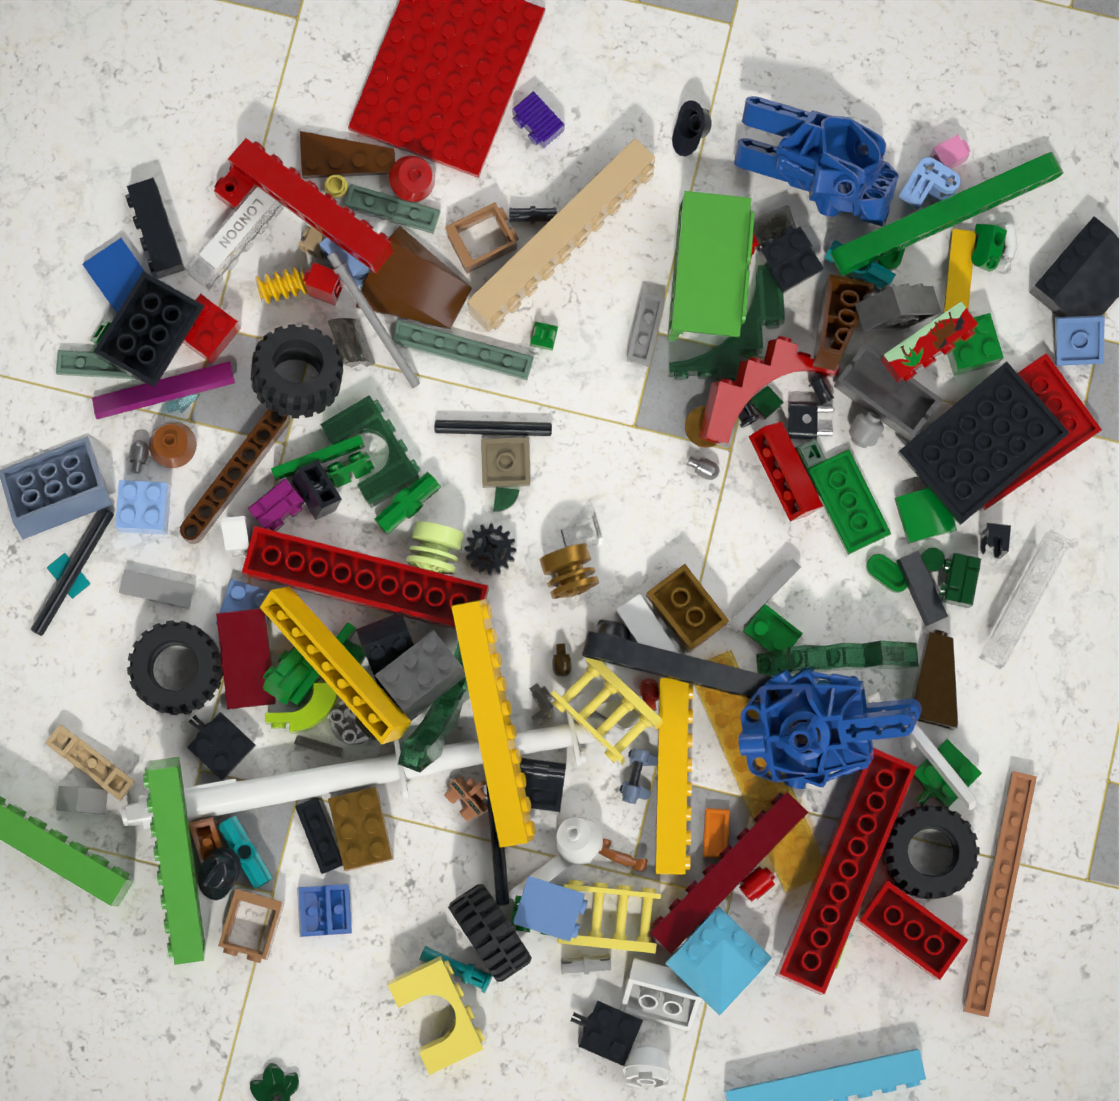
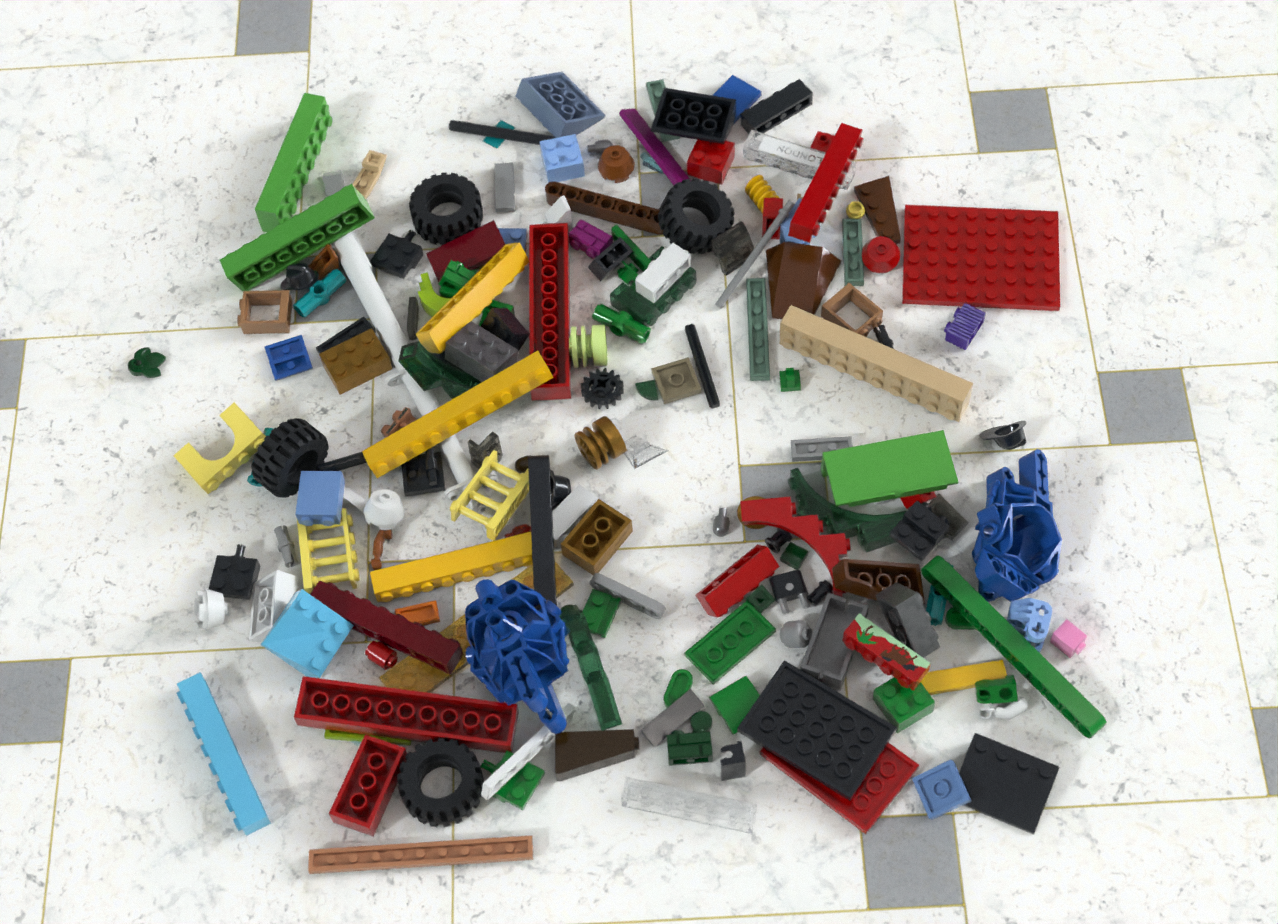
camera: 80 degrees right, 20 degrees down
(365, 433) = (662, 272): none -> white brick
(632, 790) = (437, 541): sand blue piece -> none

